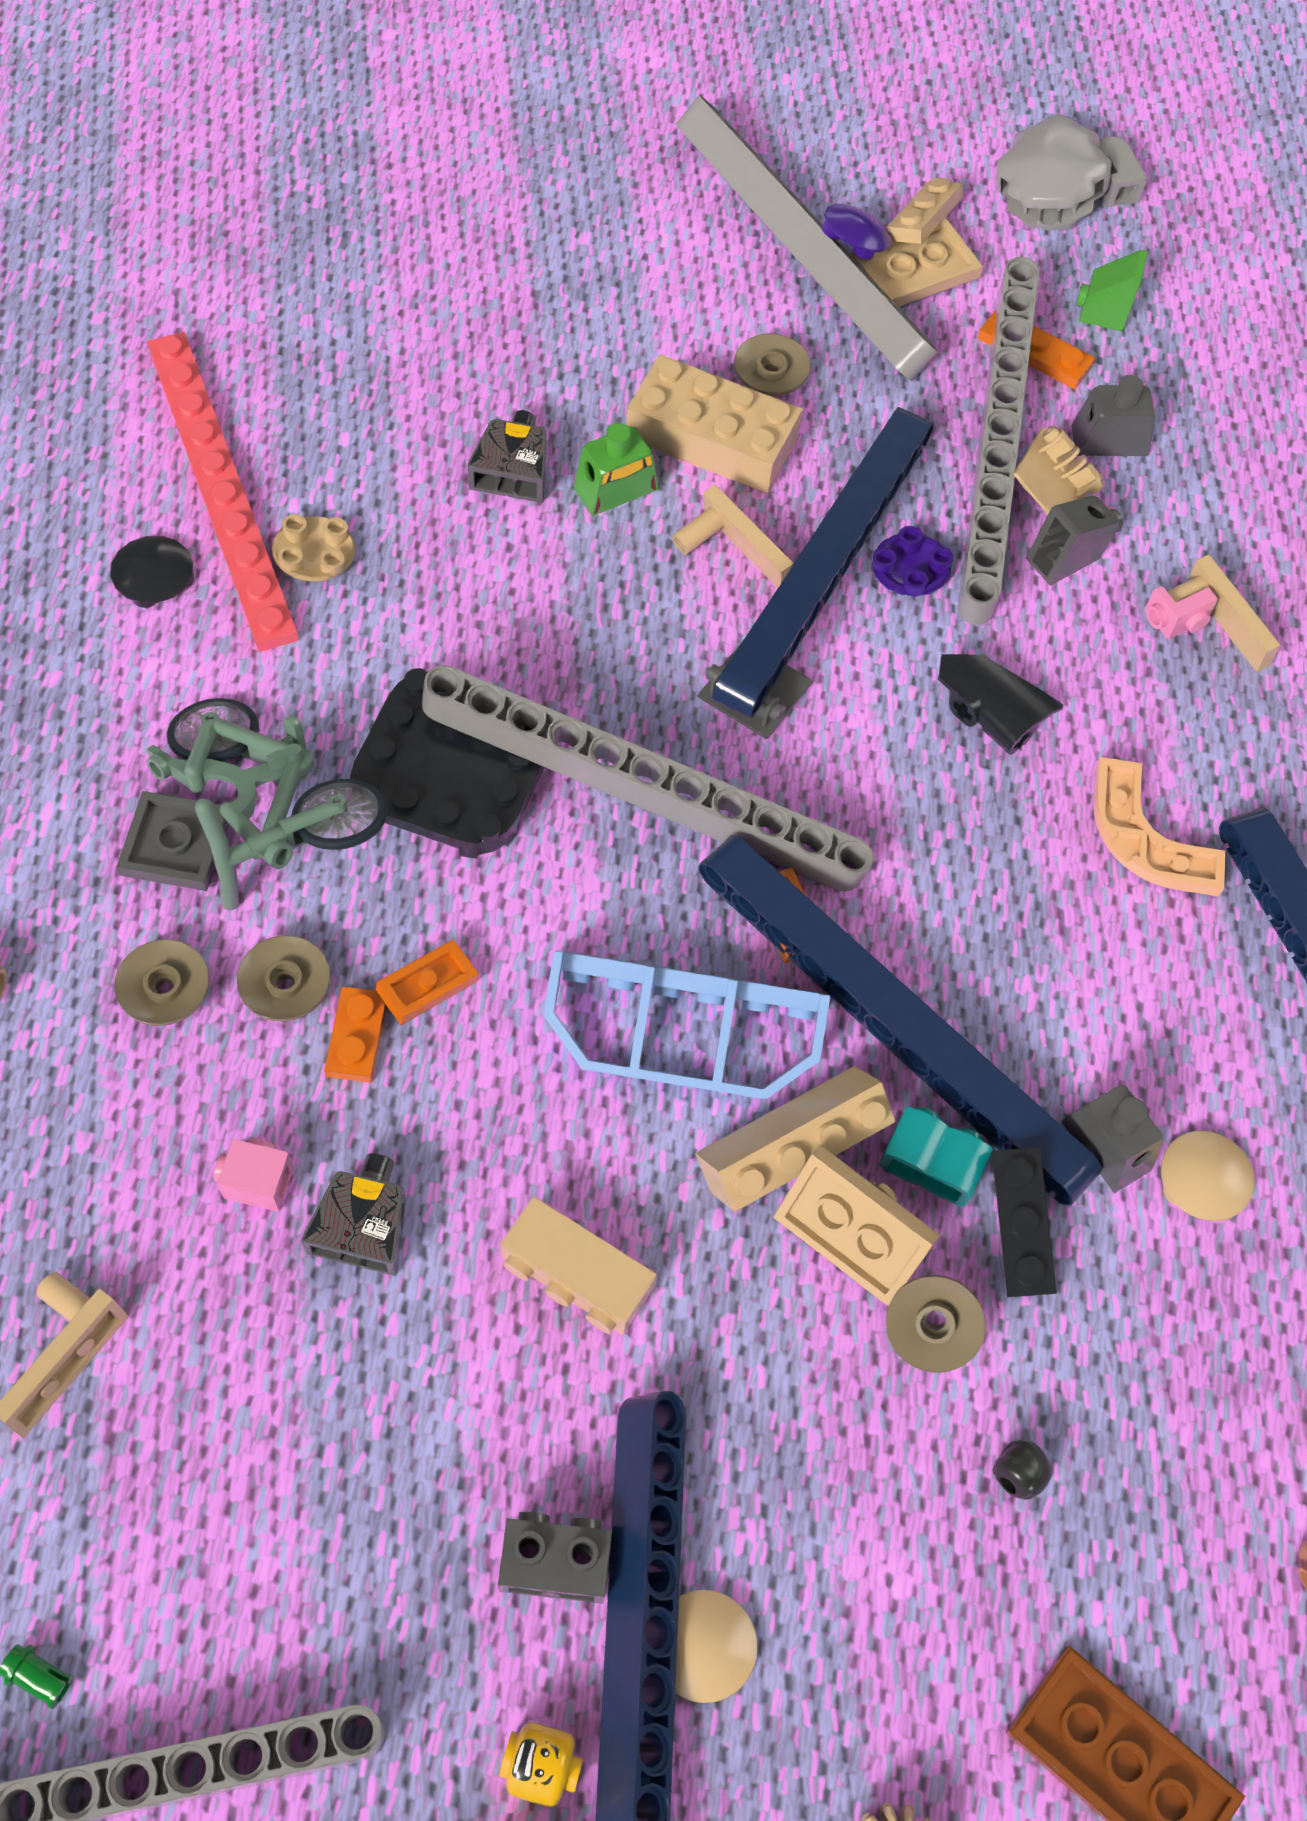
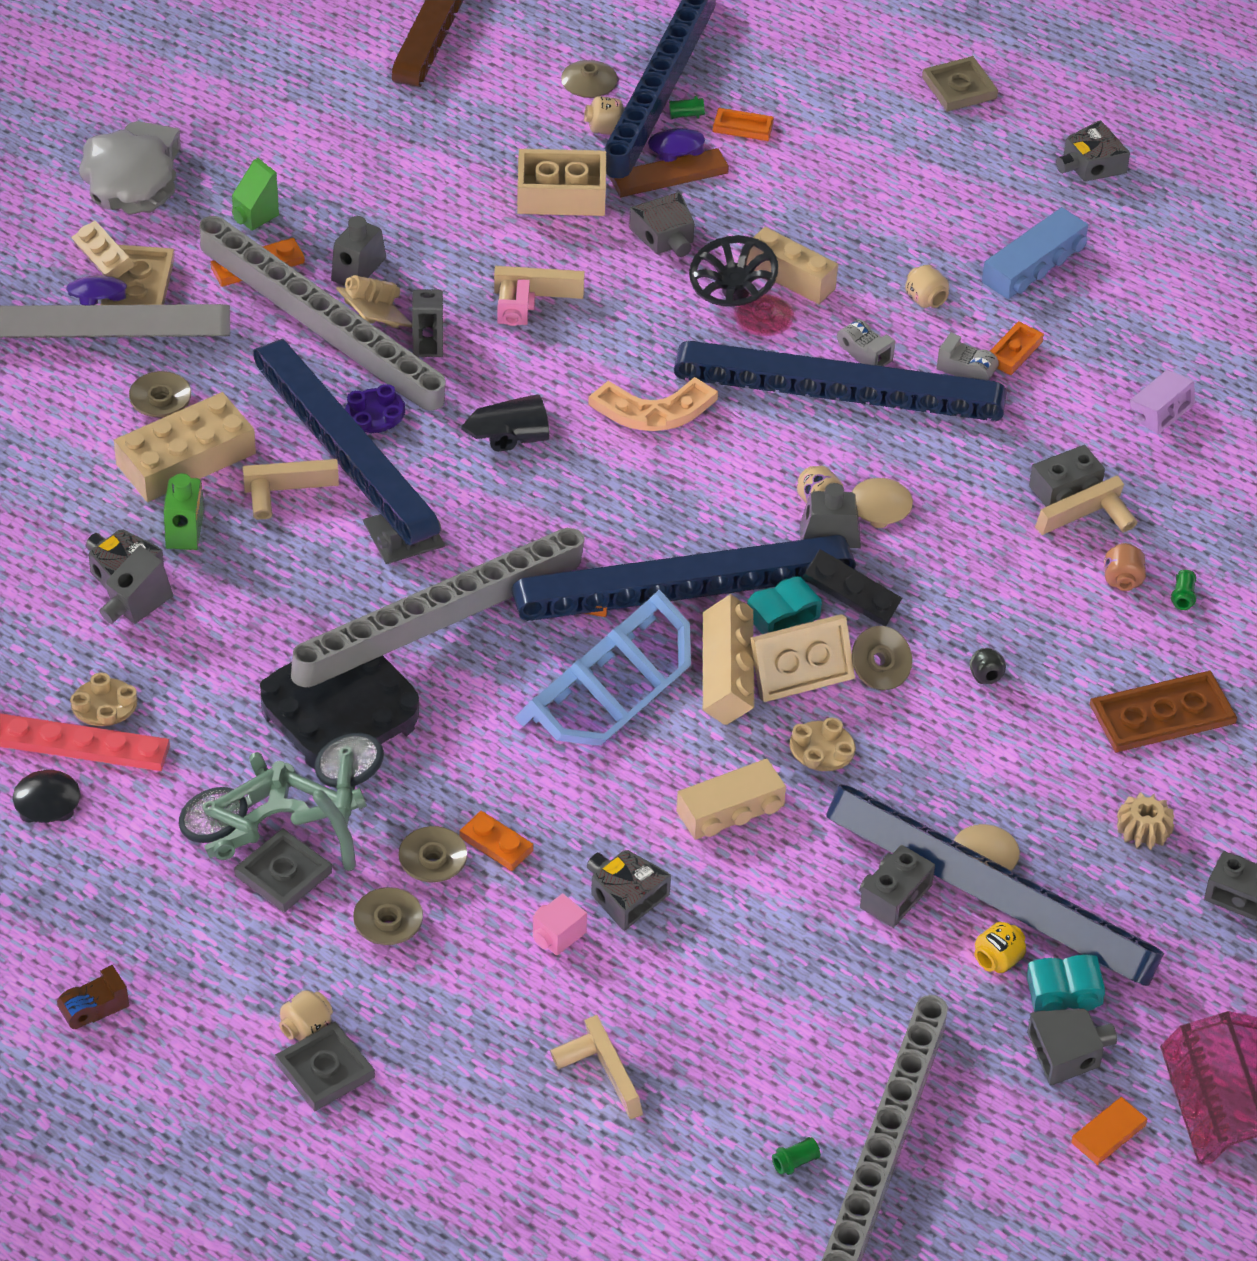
camera: 55 degrees left, 15 degrees down
(427, 982) = (490, 785): orange plate -> none
(476, 487) = (136, 587): none -> dark grey torso
(746, 1329) = (822, 745): none -> tan dish
(1164, 1088) = (815, 479): none -> tan head

